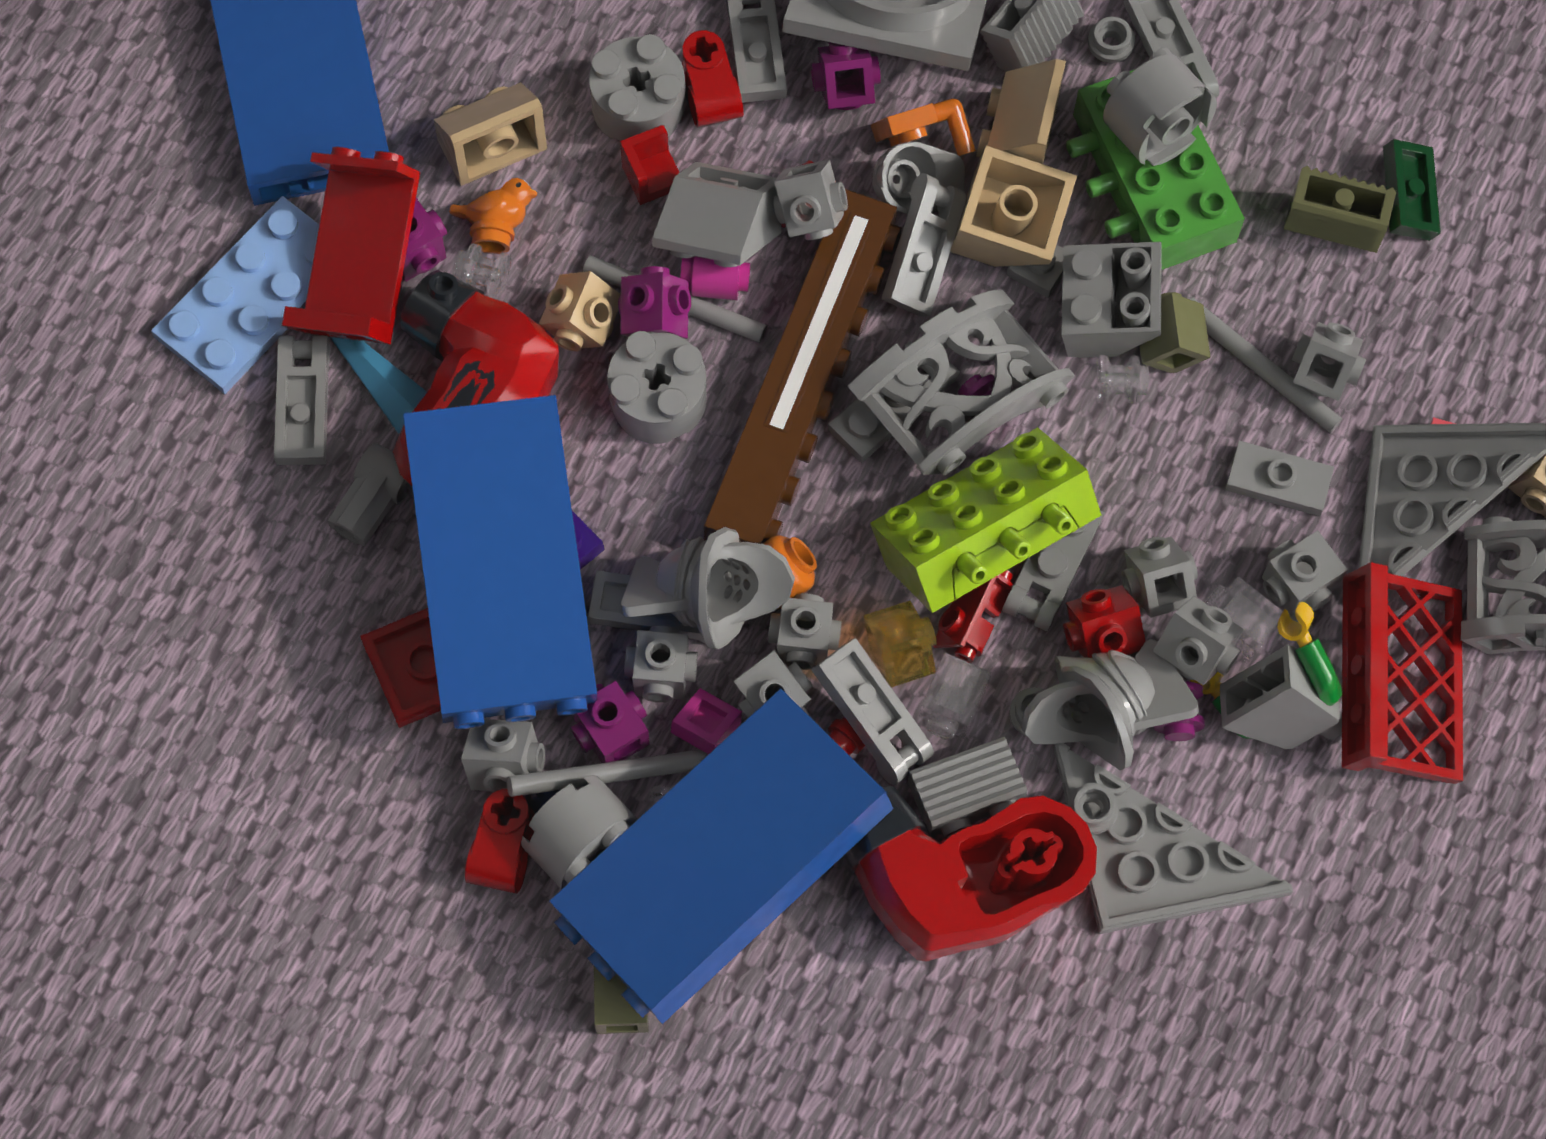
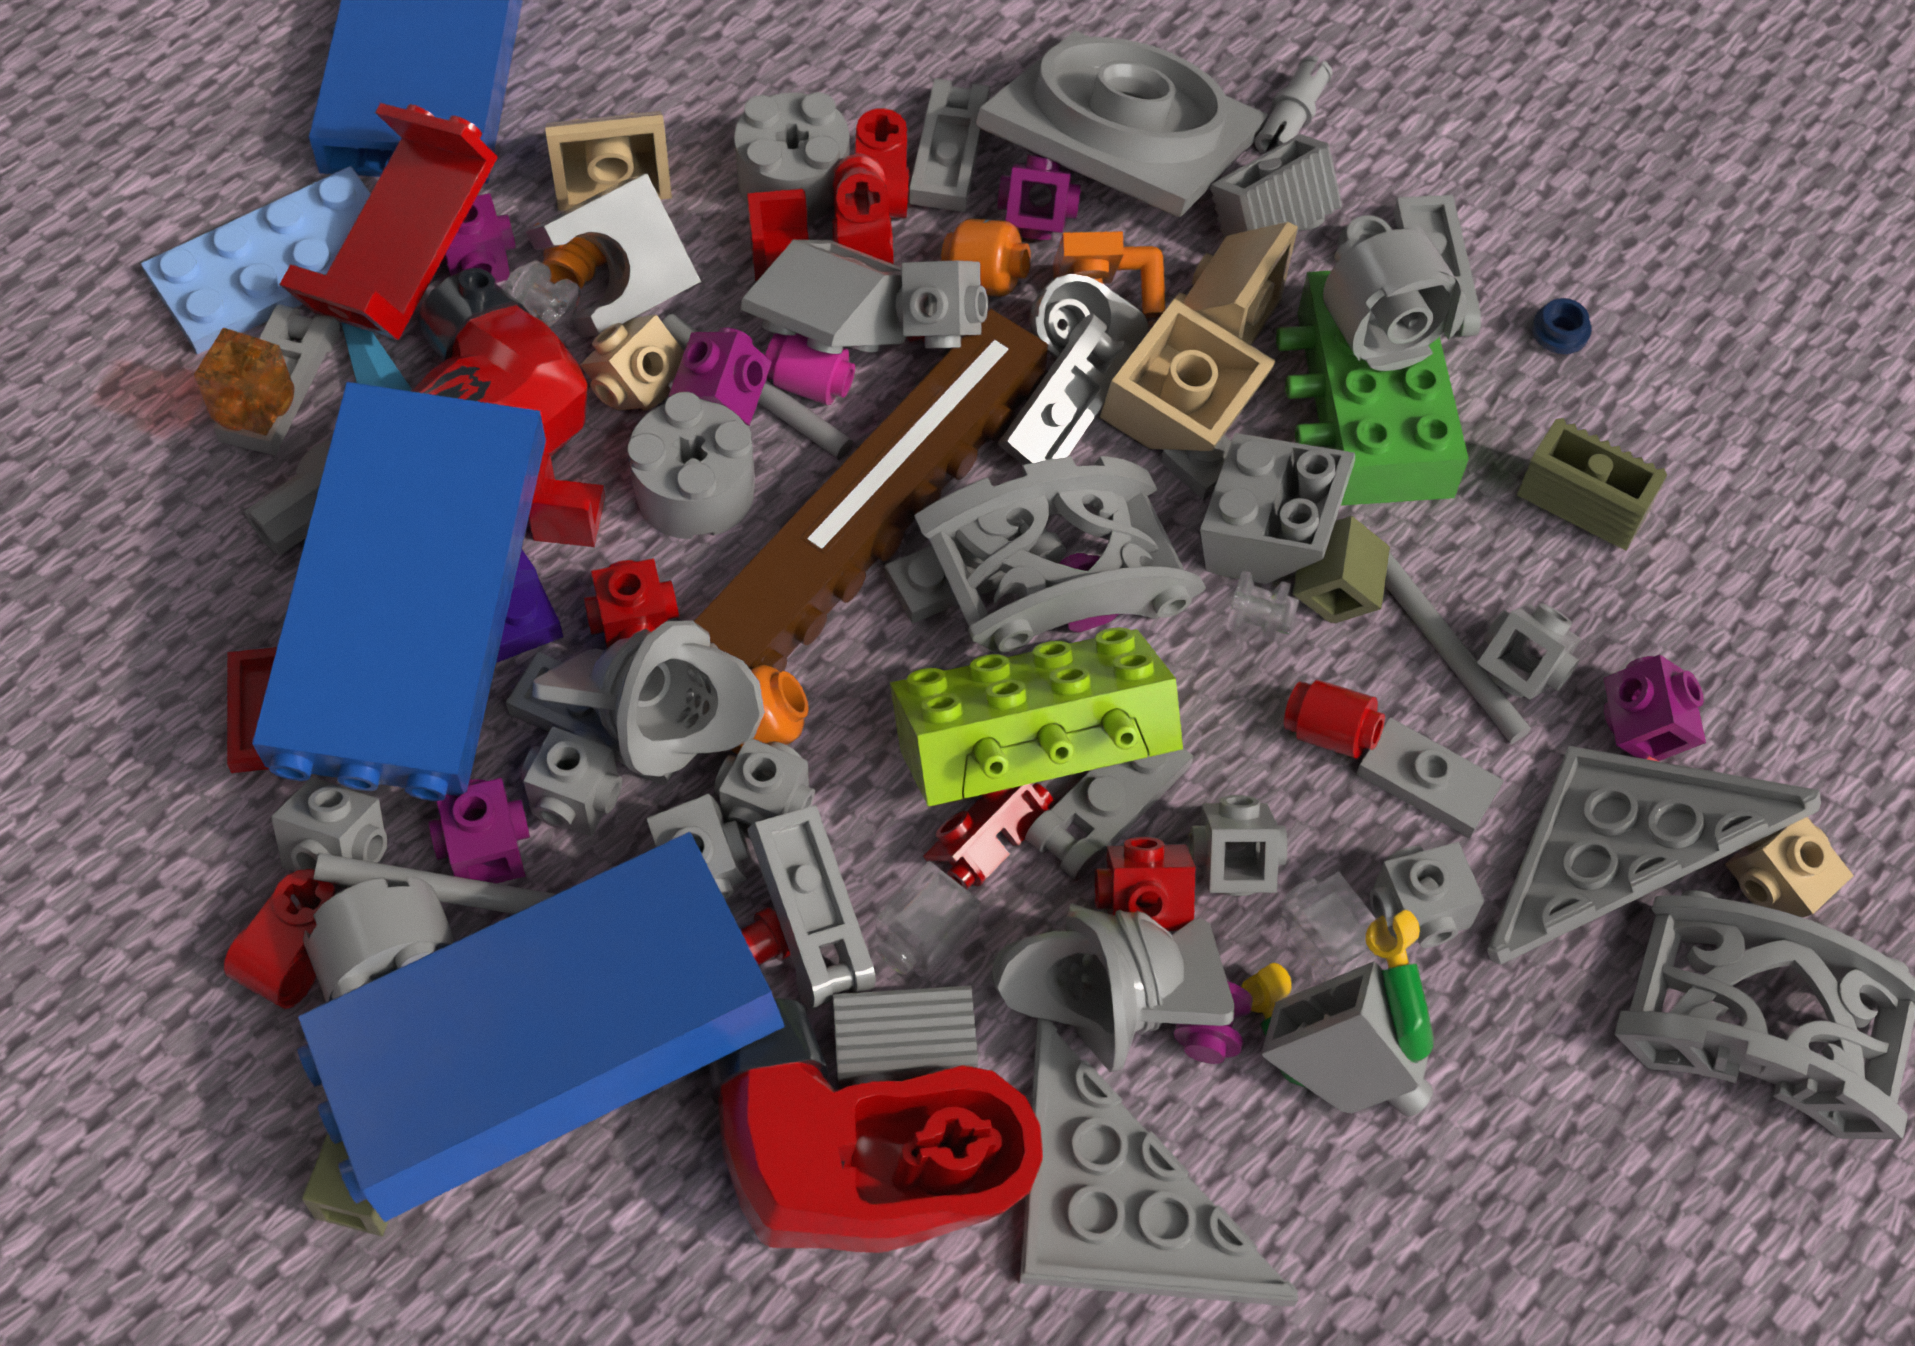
camera: 15 degrees right, 10 degrees down
(295, 420) = (245, 382): none -> clear orange brick
(554, 215) = (639, 246): none -> piece
(579, 446) = (565, 509): none -> red panel
(656, 530) = (629, 600): none -> red brick
(705, 721) = (594, 855): dark pink plate -> none
(712, 127) = (863, 219): none -> red piece
(819, 136) = (996, 247): none -> orange head
(901, 643) = (880, 837): clear yellow brick -> none
(1101, 796) = (1069, 1094): light grey plate -> none
(1199, 453) = (1334, 718): none -> red brick
(1200, 641) = (1262, 934): light grey brick -> none
(1281, 60) = (1565, 314): none -> dark blue plate
(1370, 668) = (1472, 1045): red fence -> none
(1413, 176) = (1691, 493): dark green plate -> none
(1429, 380) = (1654, 708): none -> magenta brick

